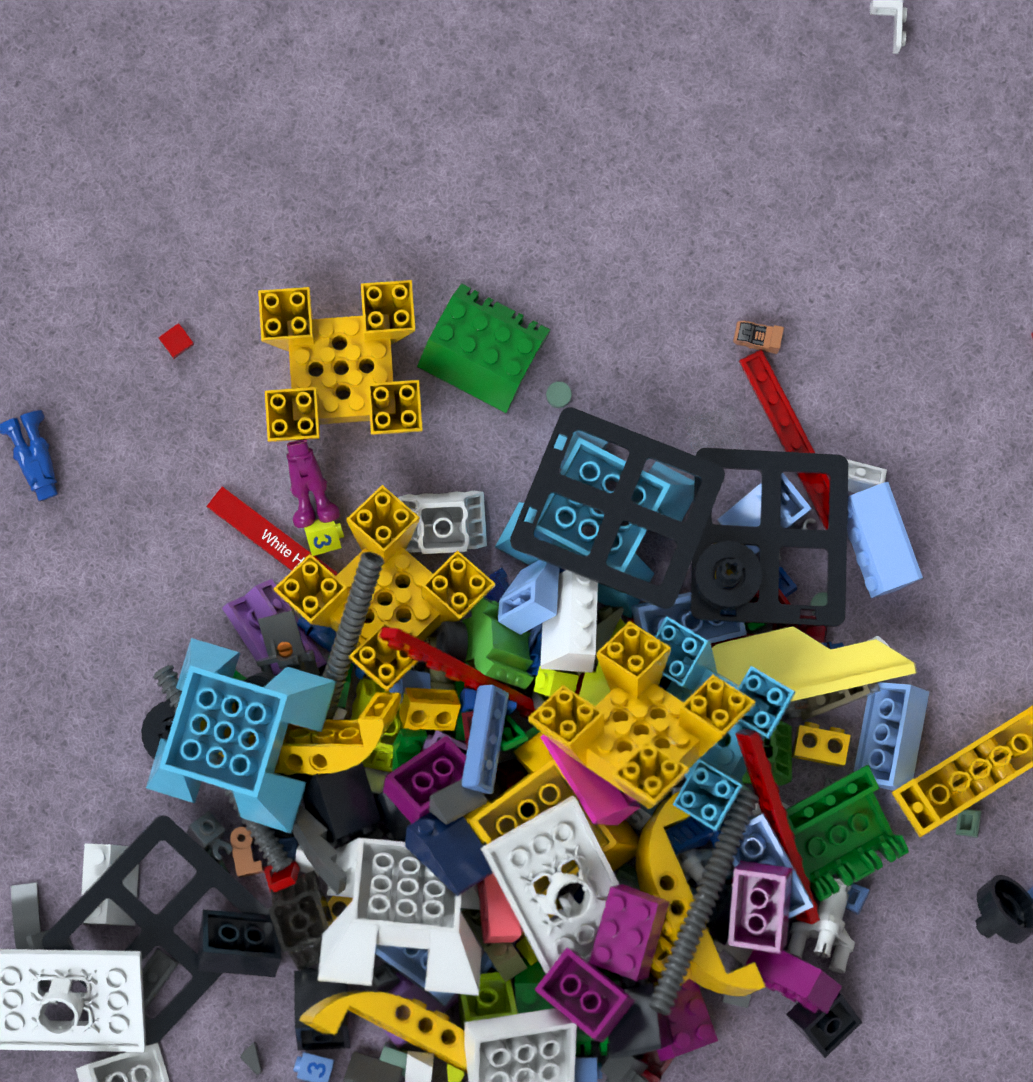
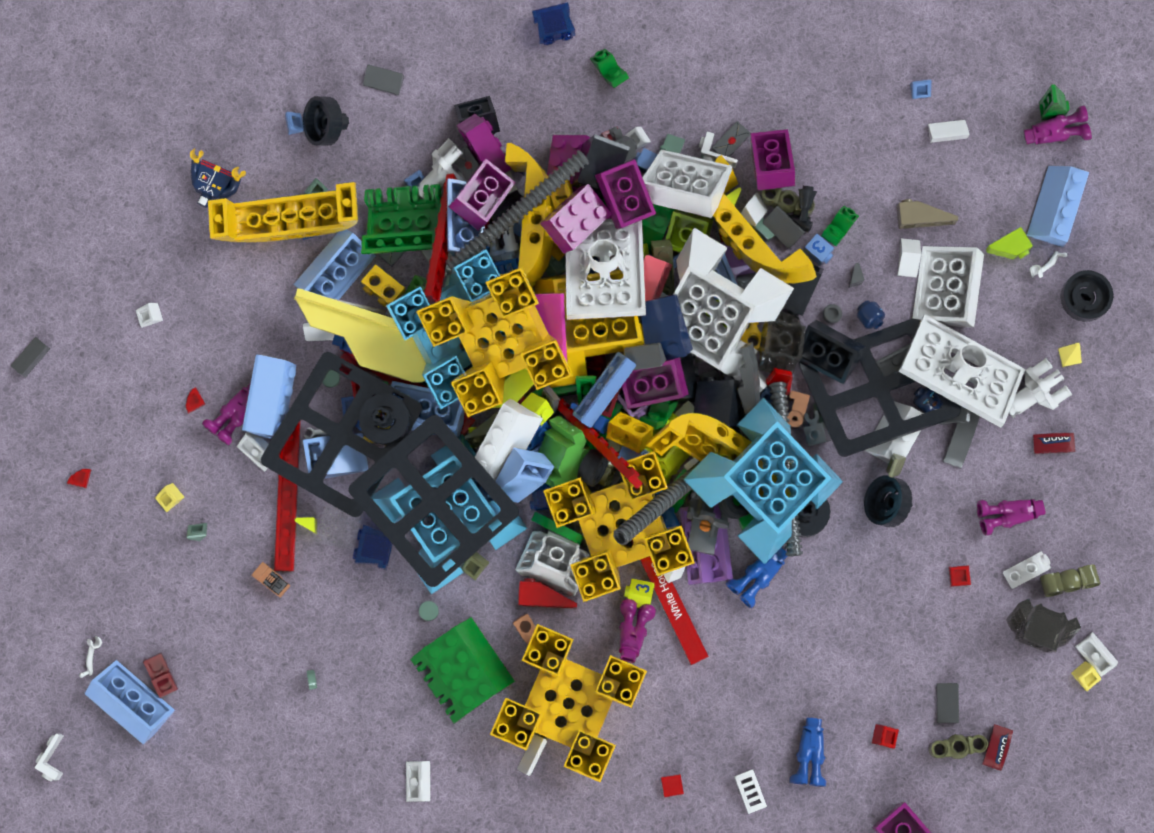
camera: 145 degrees left, 0 degrees up
(68, 797) = (894, 508): none -> black piece
(91, 838) = (895, 465): none -> olive slope
(91, 941) = (926, 399): none -> dark blue head
(97, 393) = (742, 776): none -> white slope
(188, 628) = (762, 573): none -> blue piece
(211, 1018) = (870, 315): none -> dark blue head
(259, 997) = (832, 313): none -> dark grey tile
(352, 291) = (532, 755): none -> white slope
(436, 430) = (525, 627): none -> nougat leg
(436, 558) = (562, 530): none -> green piece
(439, 475) = (538, 595): none -> red slope
(468, 201) = (418, 781): none -> white slope
(528, 472) = (475, 566): none -> olive slope
(650, 250) = (311, 679): none -> sand green tile
(662, 426) = (373, 548): none -> clear blue hips
(752, 421) = (308, 522): none -> neon yellow slope
(802, 947) = (466, 162): none -> dark grey tile
(823, 170) = (160, 675): none -> dark red slope
(841, 123) = (129, 701): none -> light blue slope
(875, 348) = (197, 531): none -> sand green slope
(914, 508) = (233, 409): none -> magenta piece
(915, 165) = (89, 664): none -> white piece
(930, 372) = (169, 497): none -> light yellow slope
(966, 496) = (194, 400): none -> red tile
(966, 1007) = (383, 79): none -> dark grey slope

